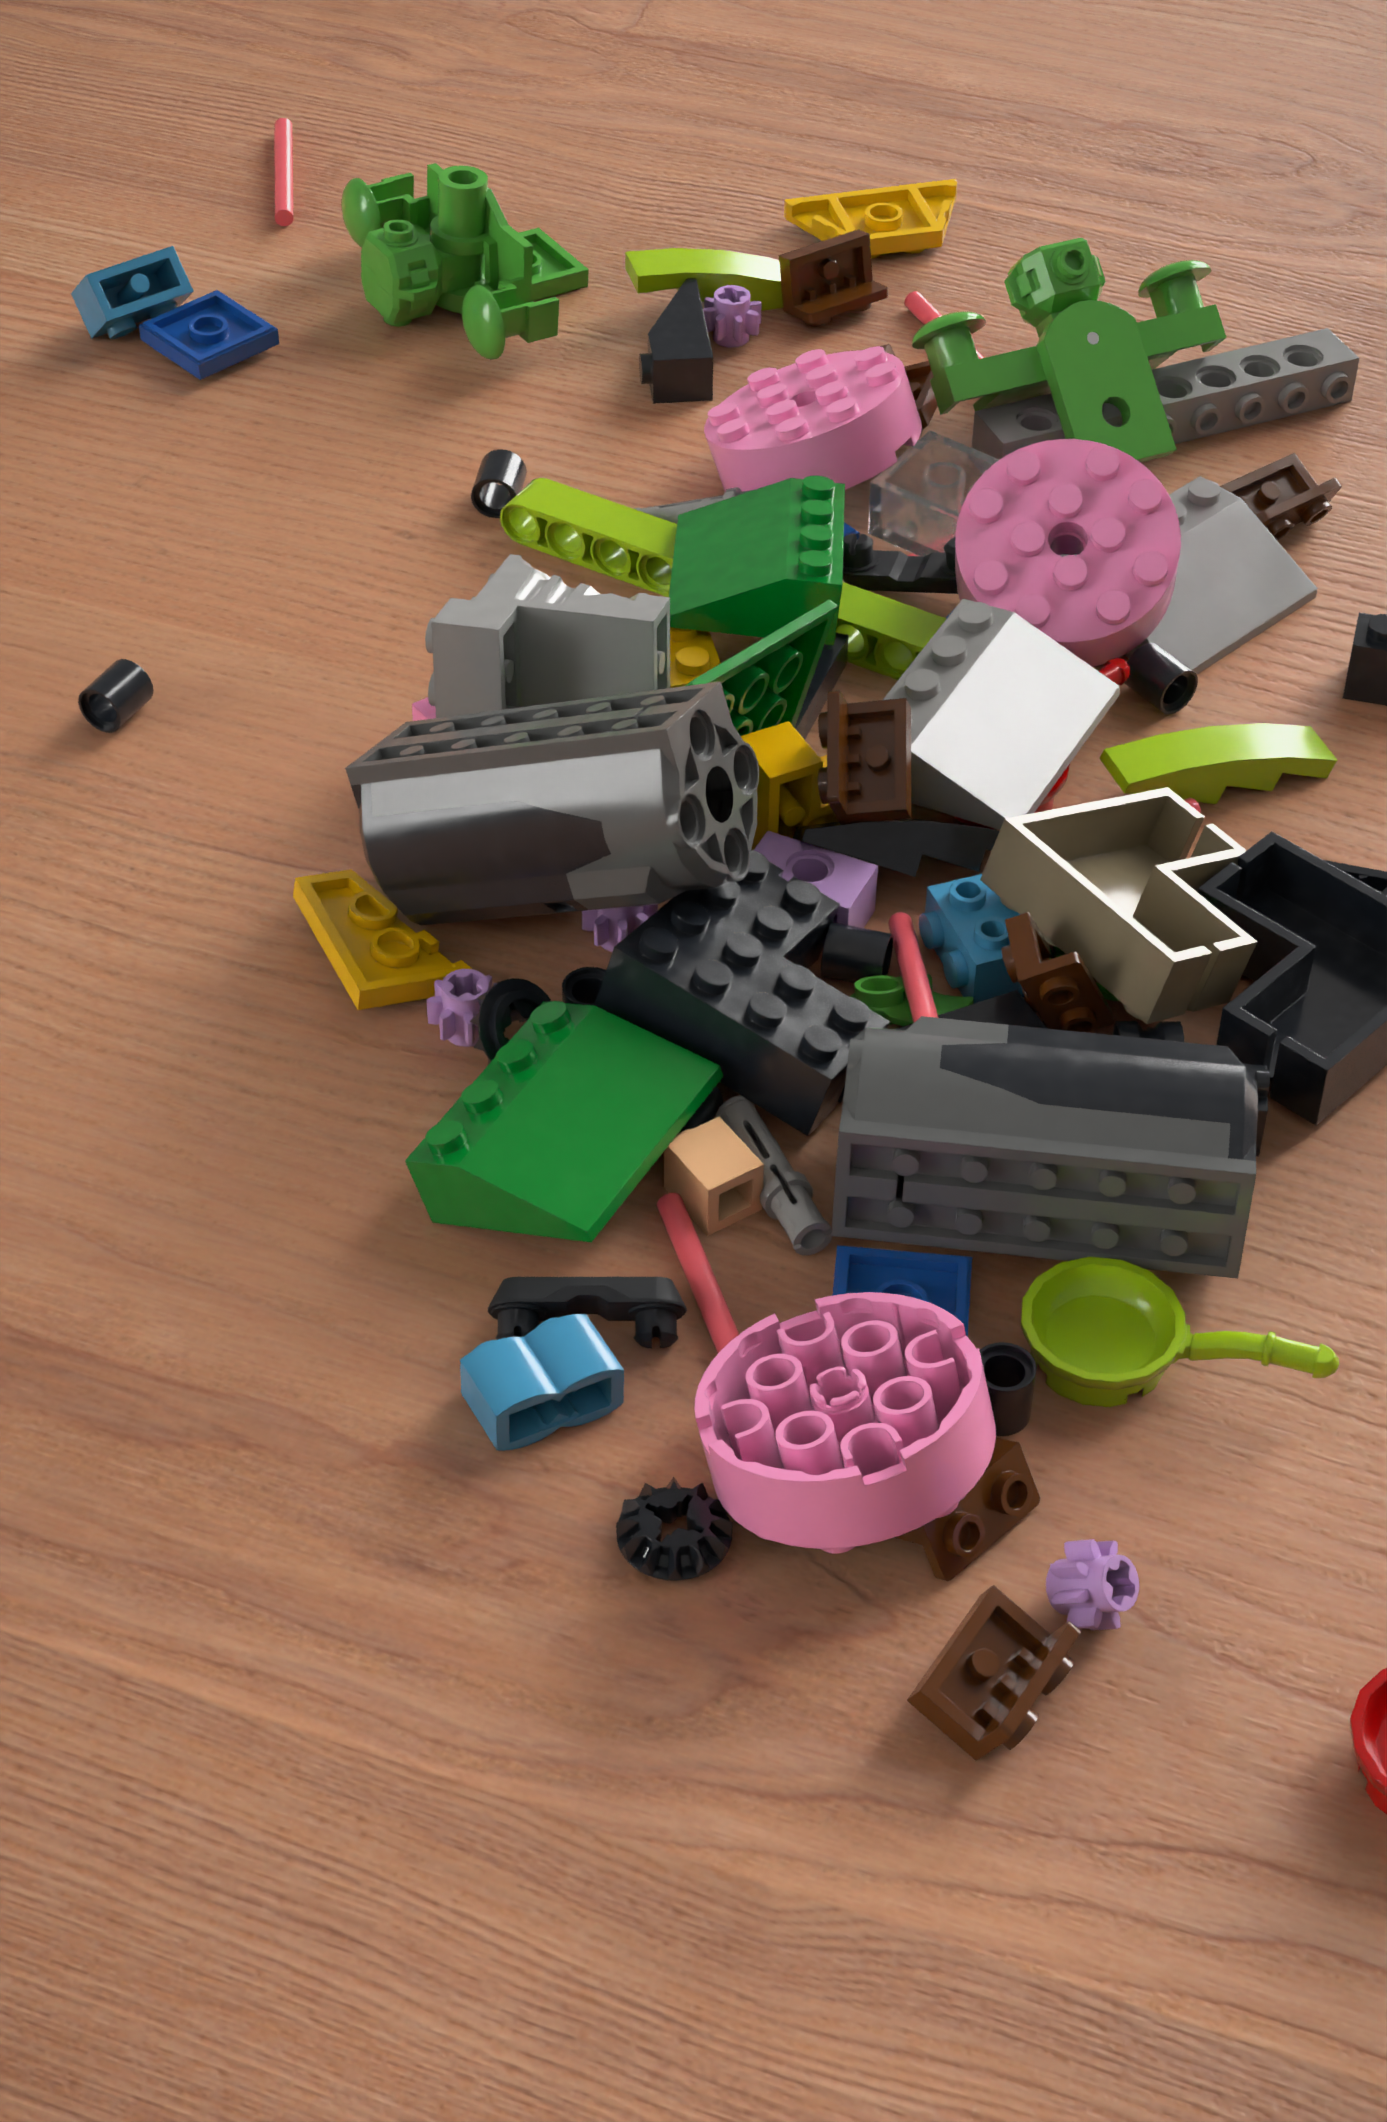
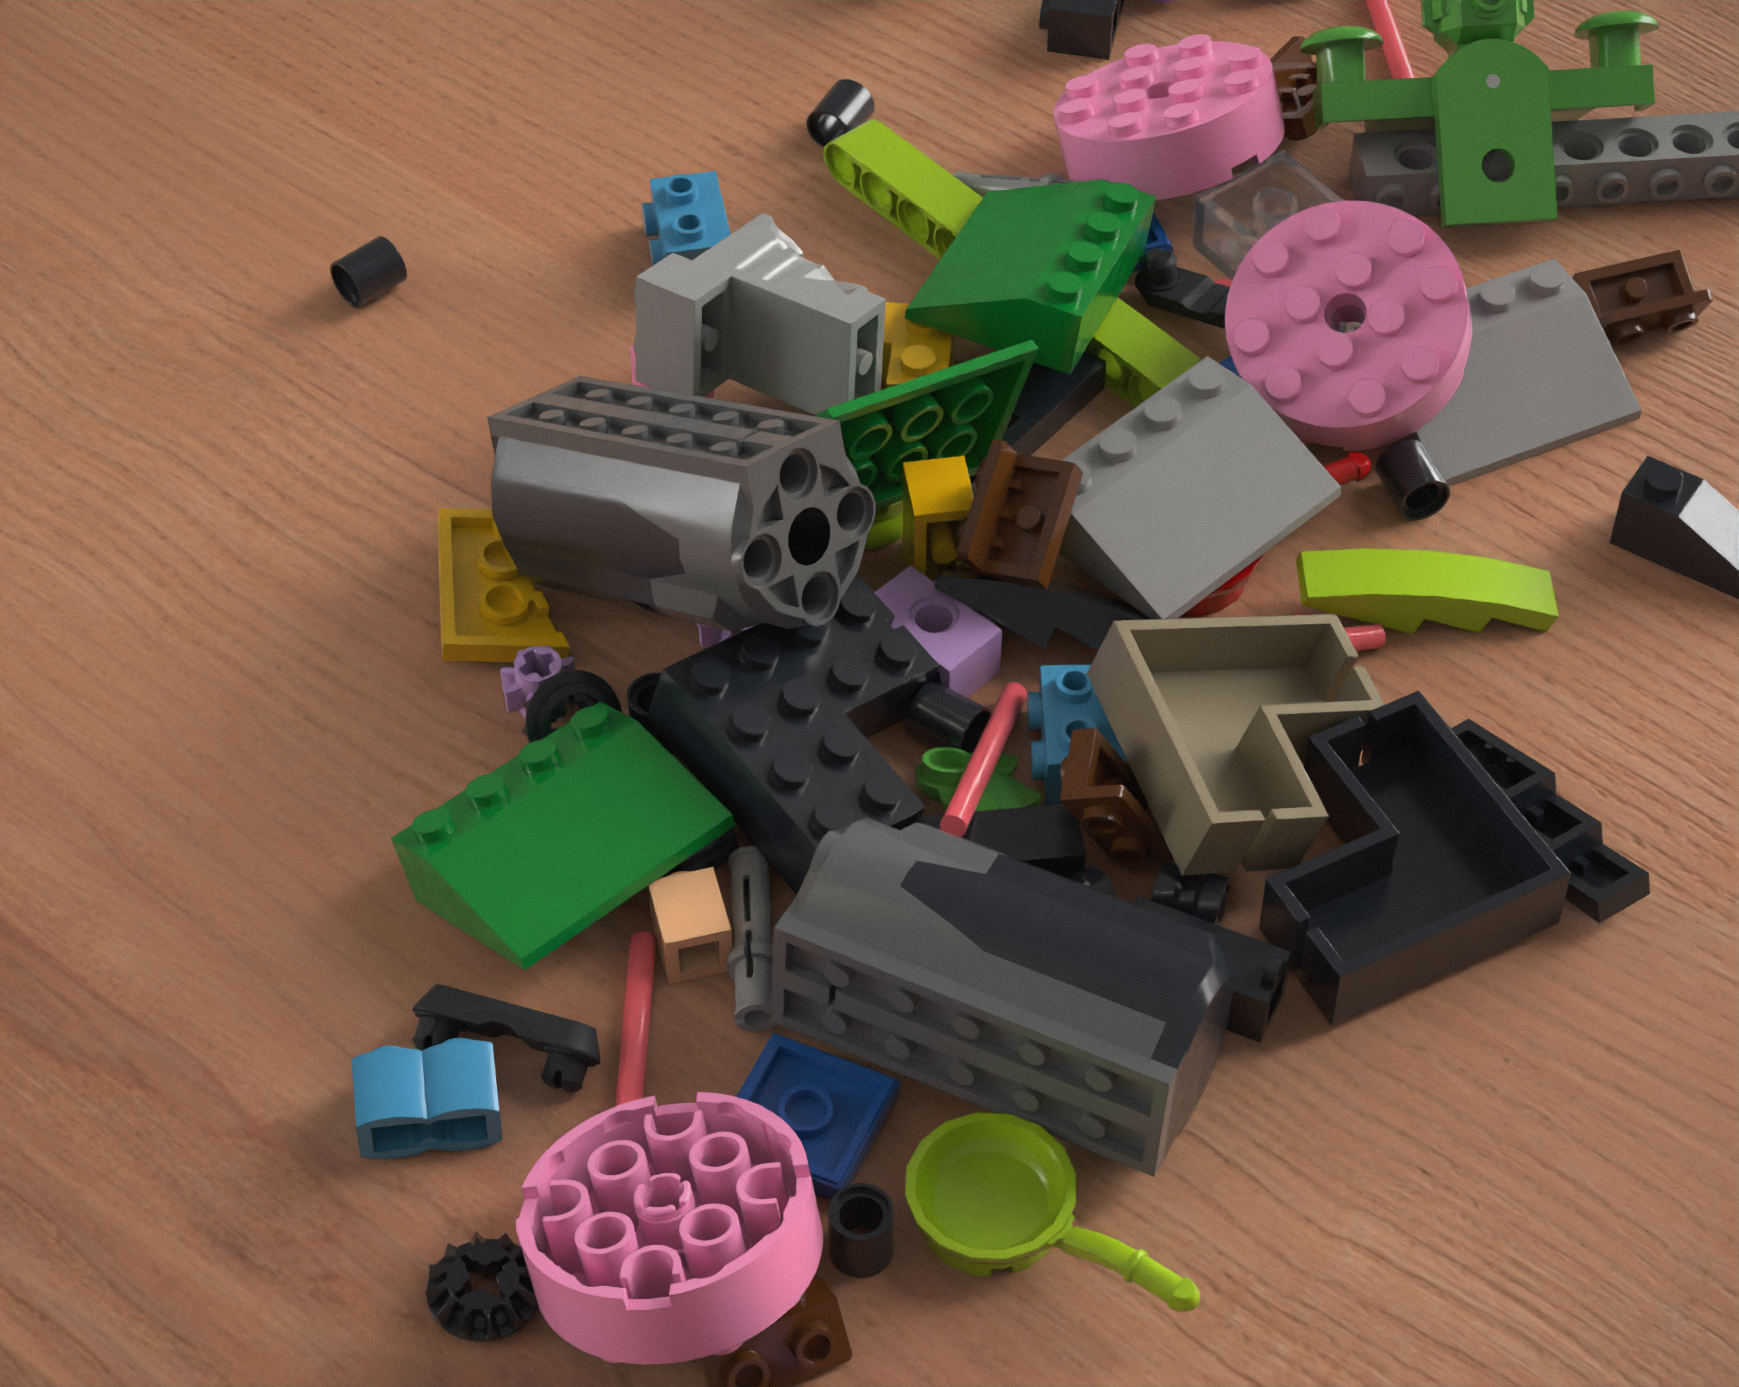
camera: 20 degrees right, 5 degrees up
(400, 597) = (684, 215): none -> dark azure brick

